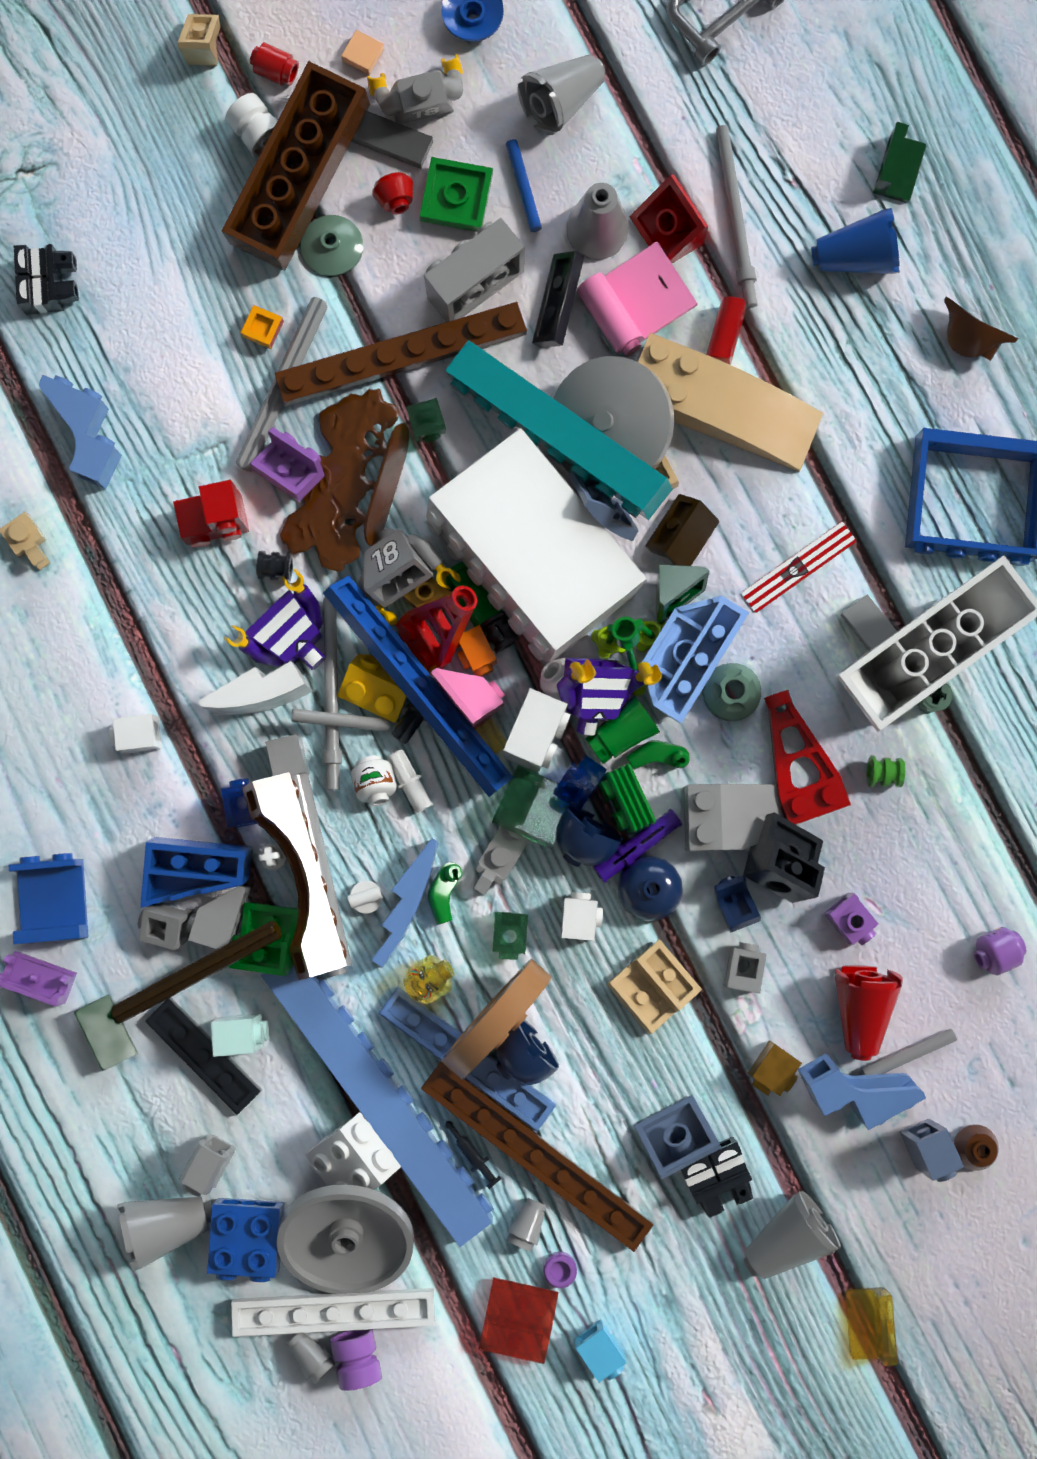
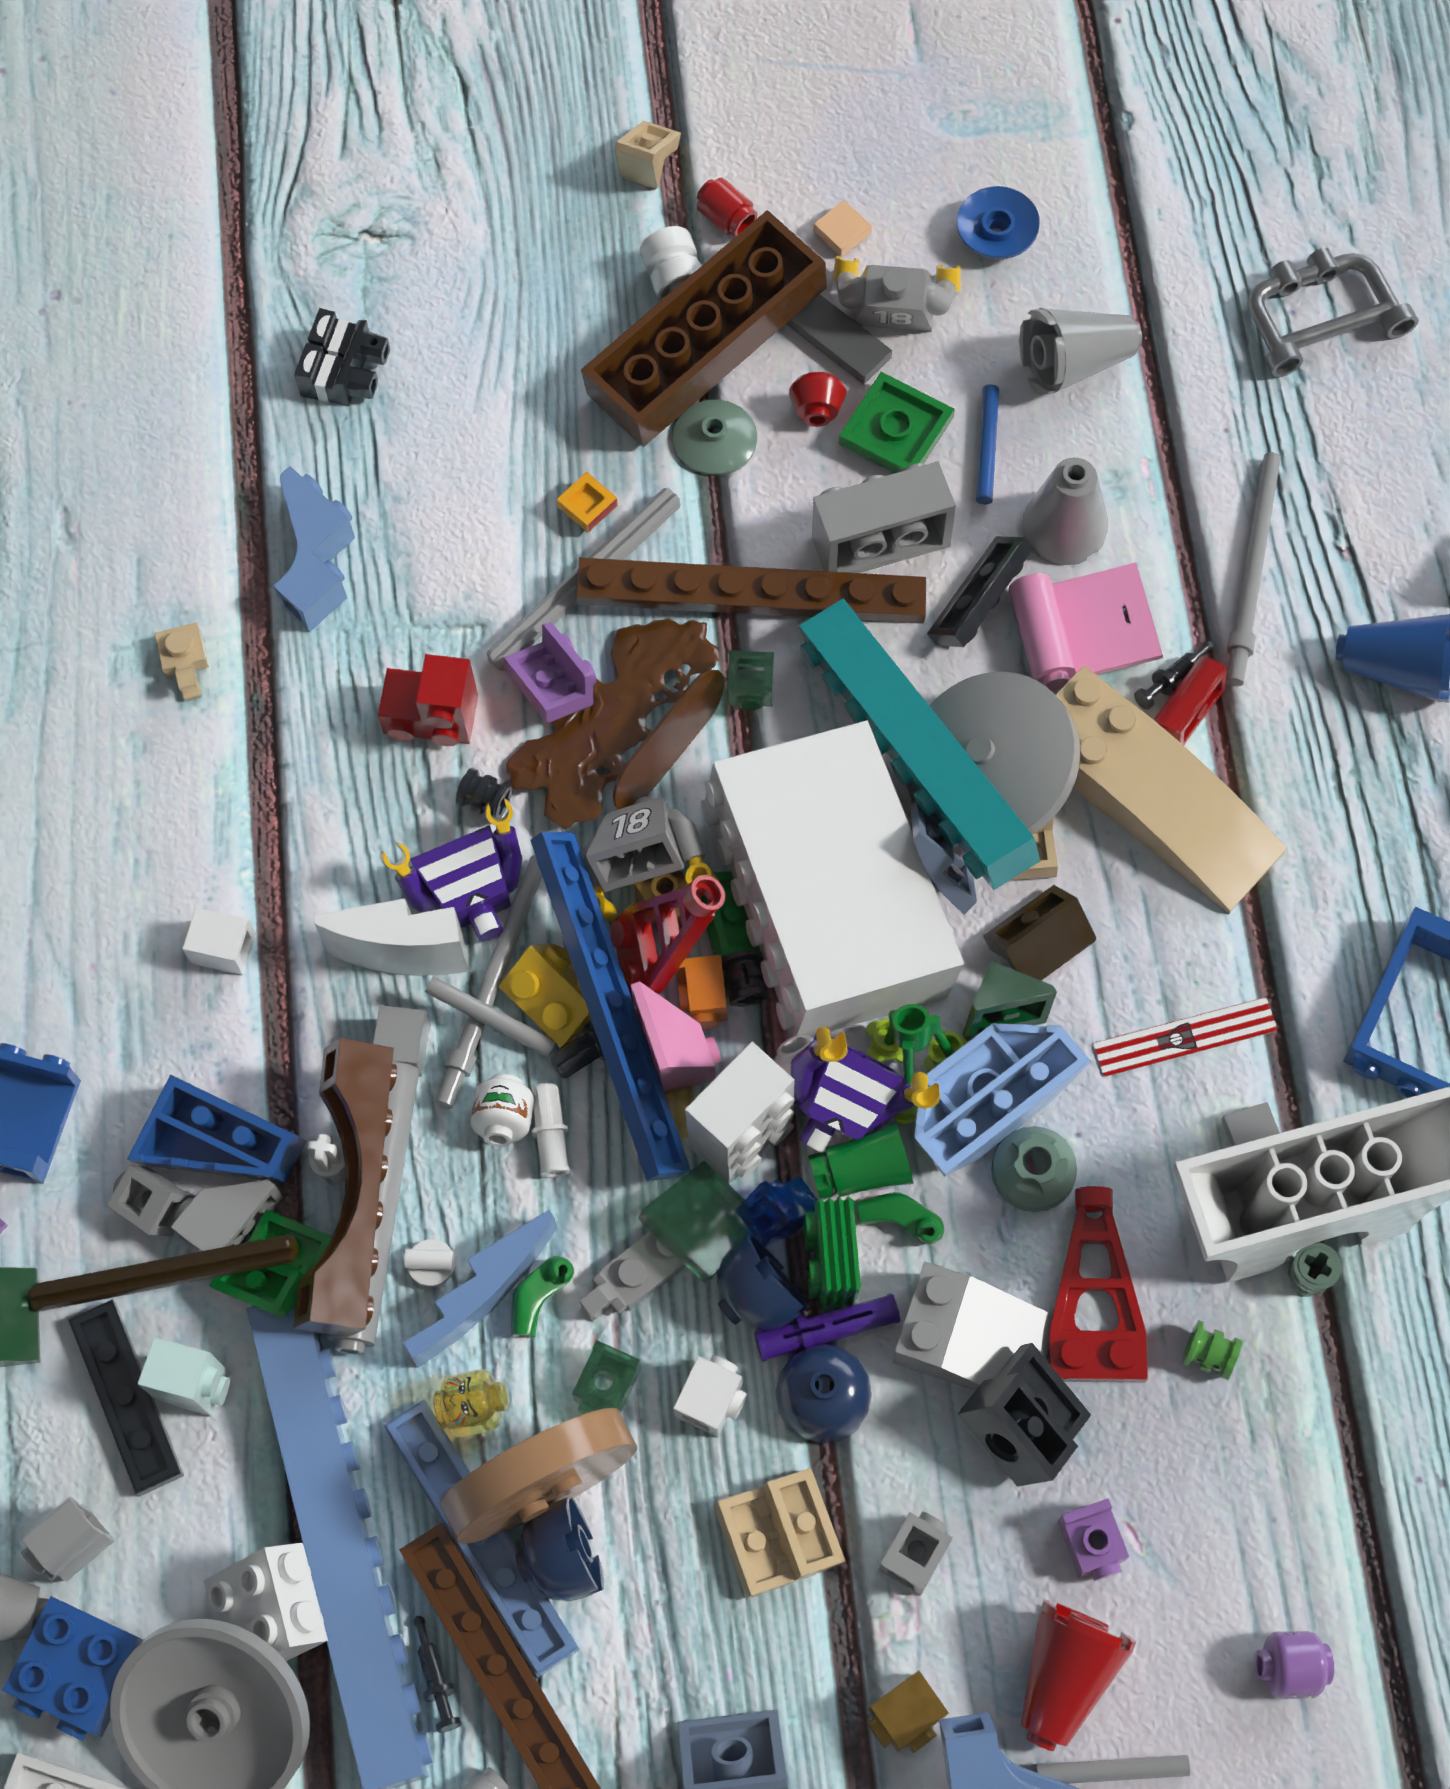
camera: 25 degrees right, 15 degrees down
(231, 796) = (300, 1092): clear blue brick -> none
(670, 220) = (1163, 544): red slope -> none
(705, 320) = (1165, 680): none -> black piece
(736, 903) = (936, 1454): dark blue bracket -> none

